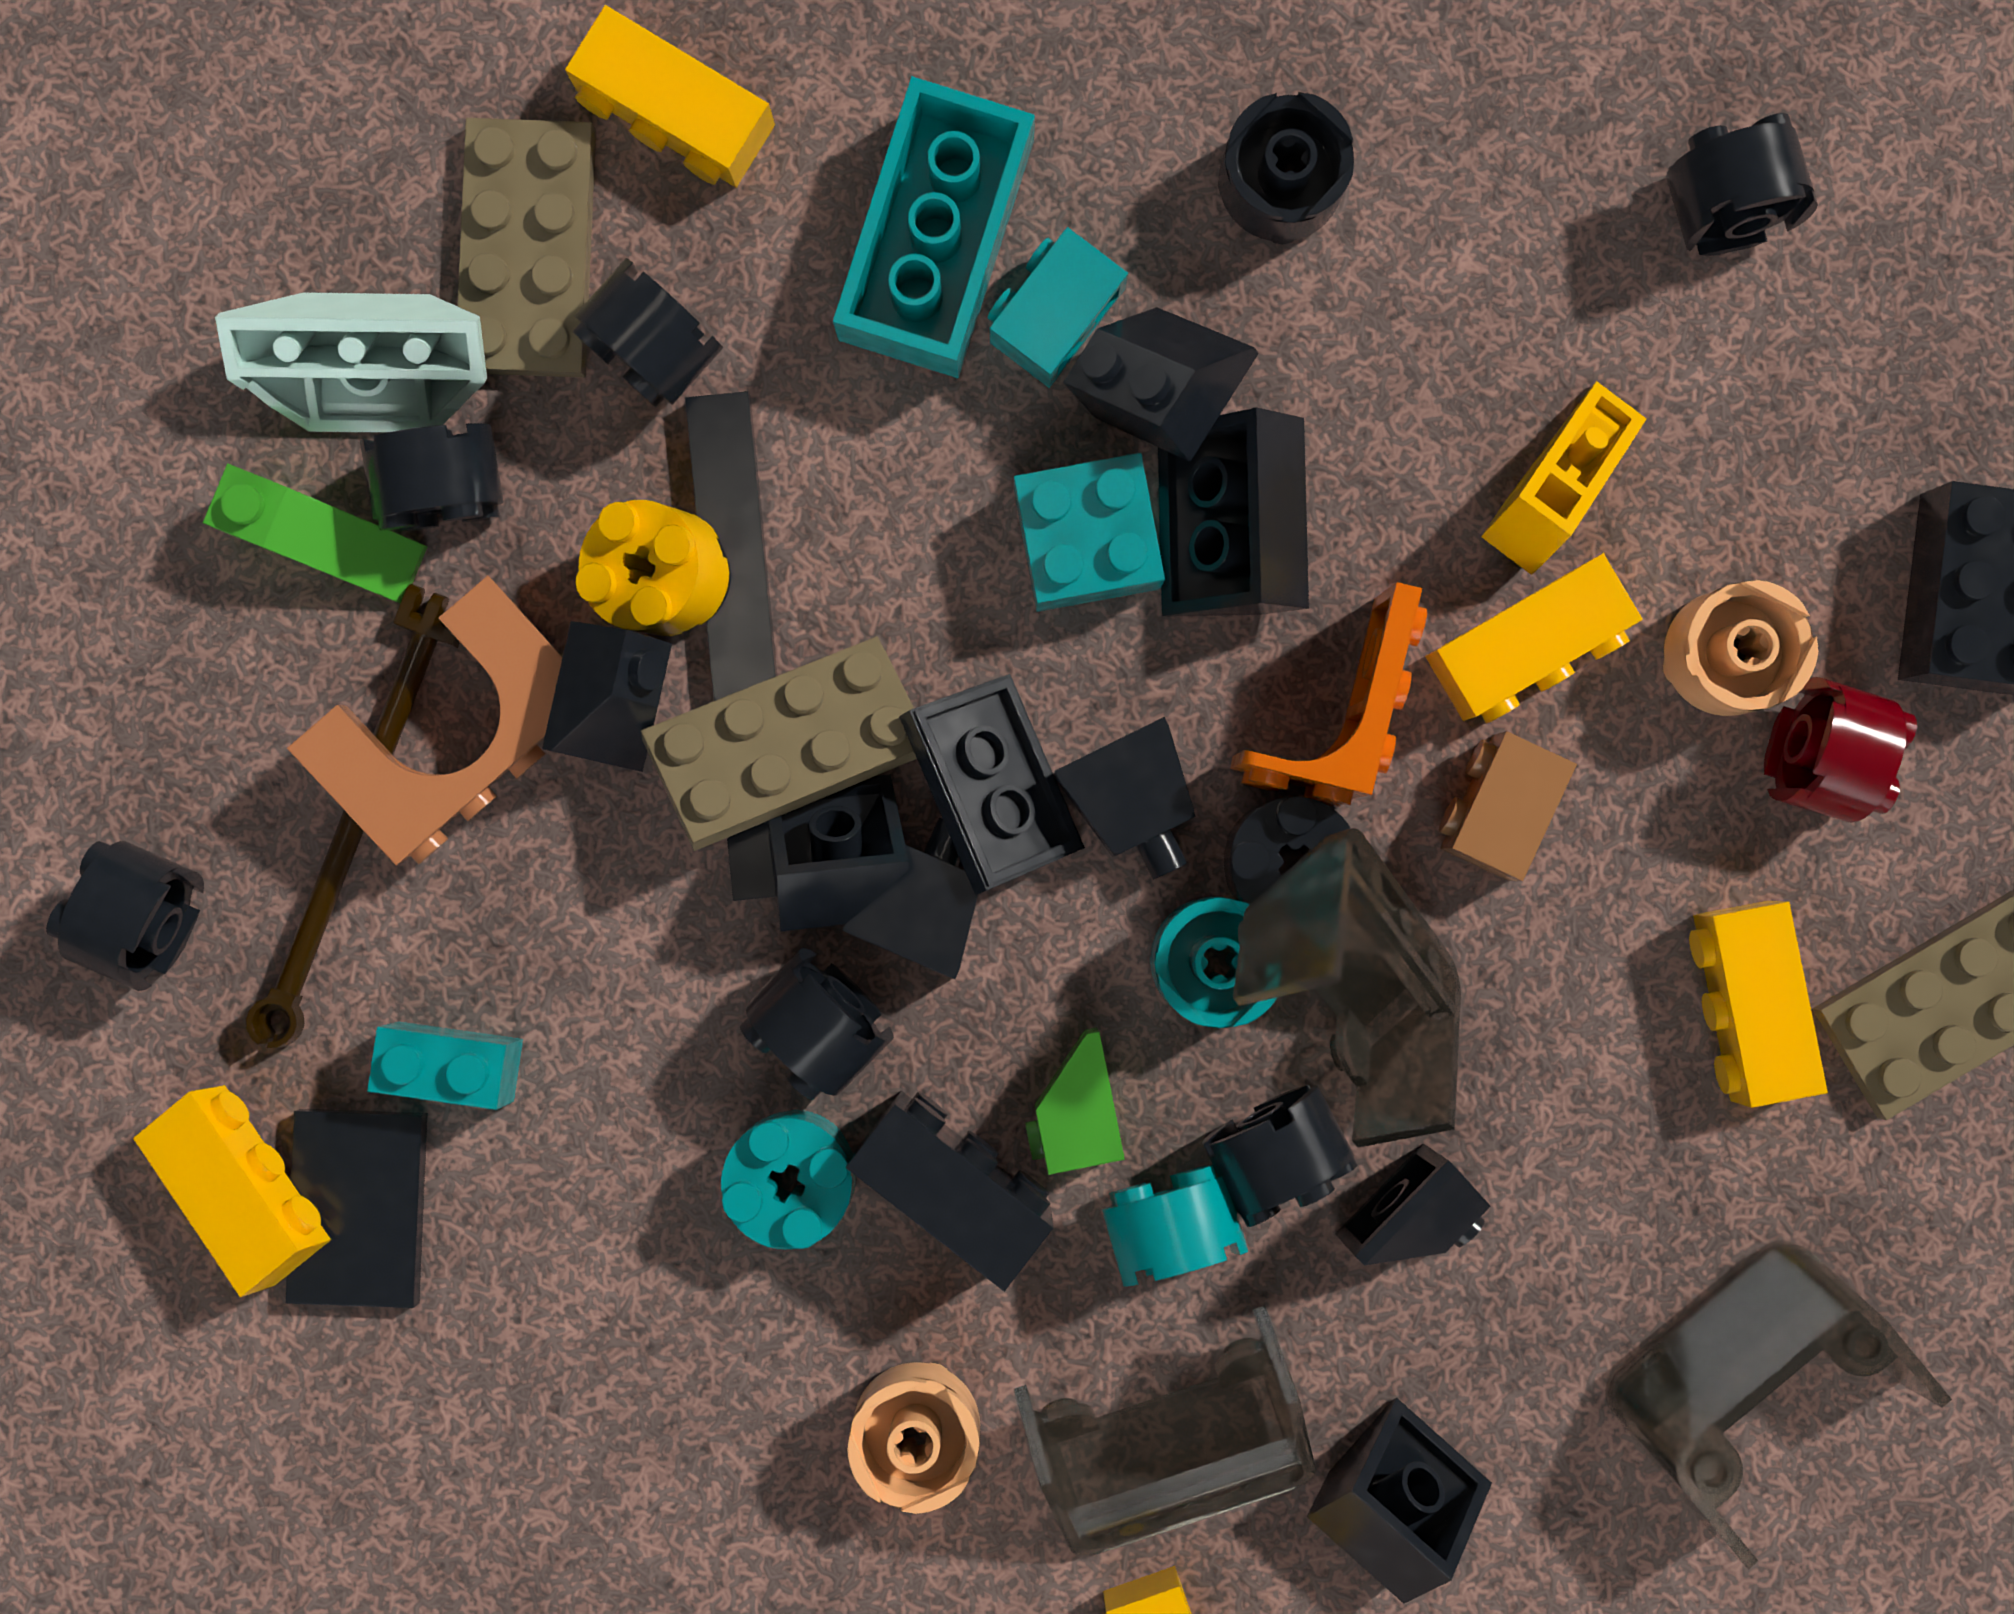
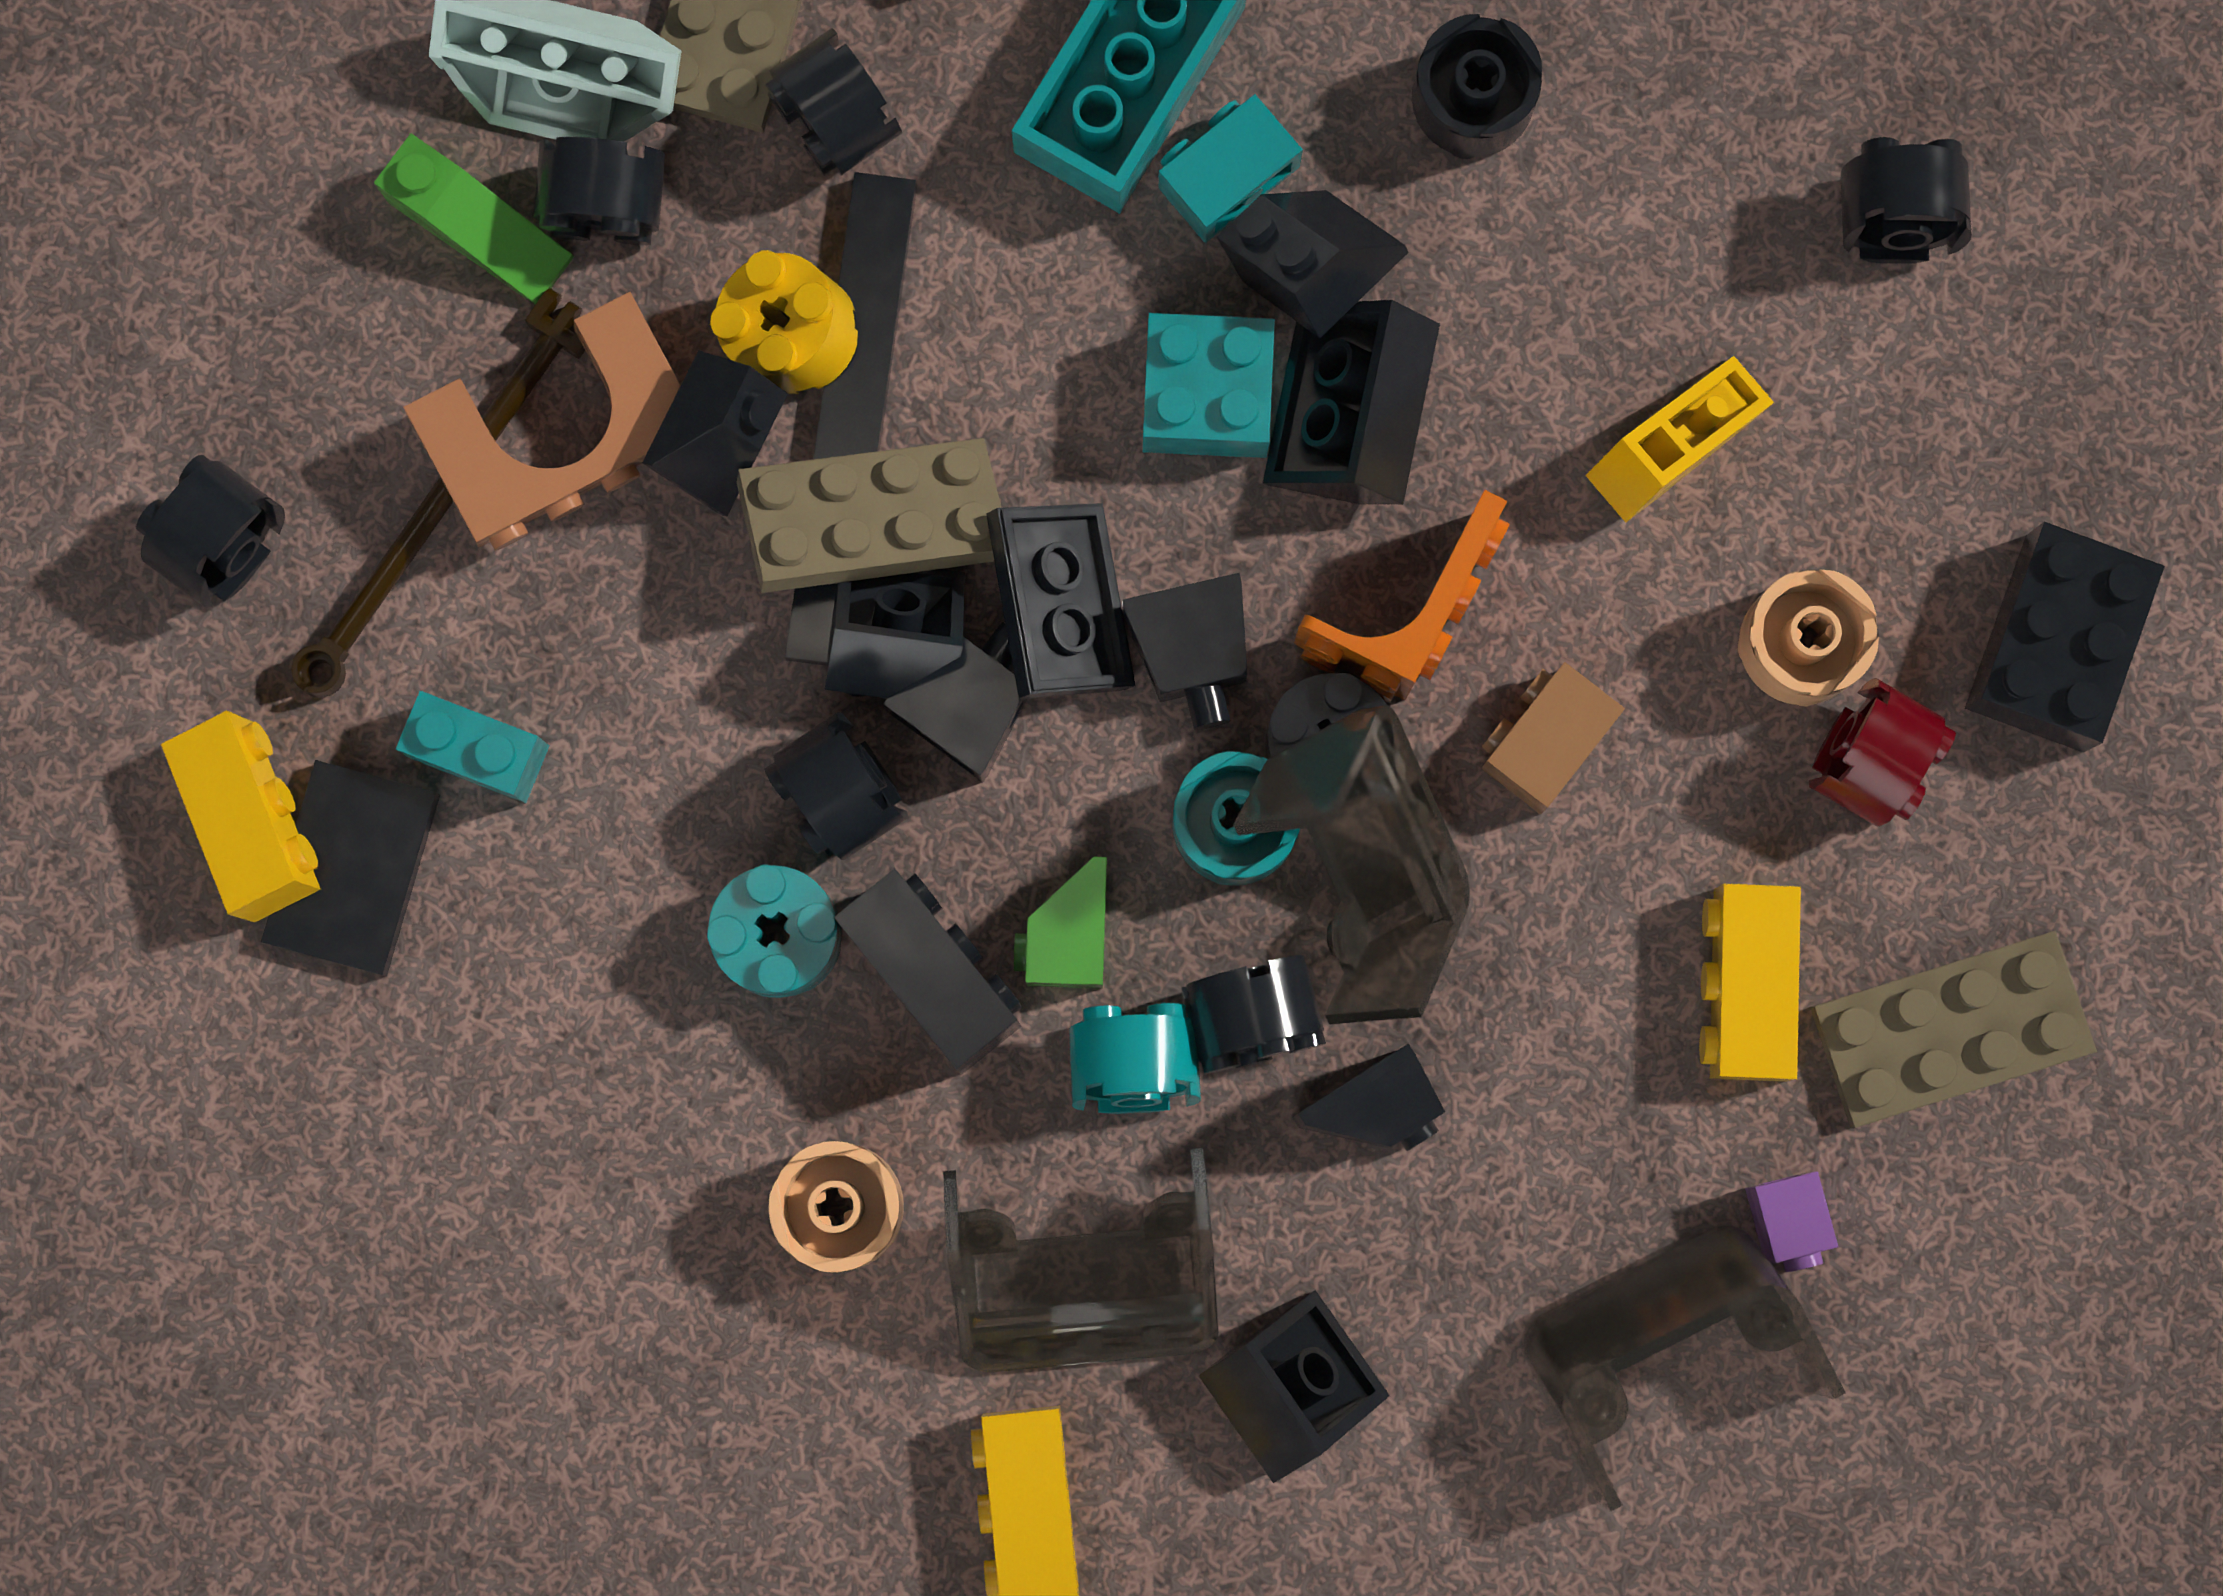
camera: 15 degrees right, 5 degrees down
(1535, 641) = (1614, 585): yellow brick -> none
(1847, 1225) = (1792, 1220): none -> medium lavender brick

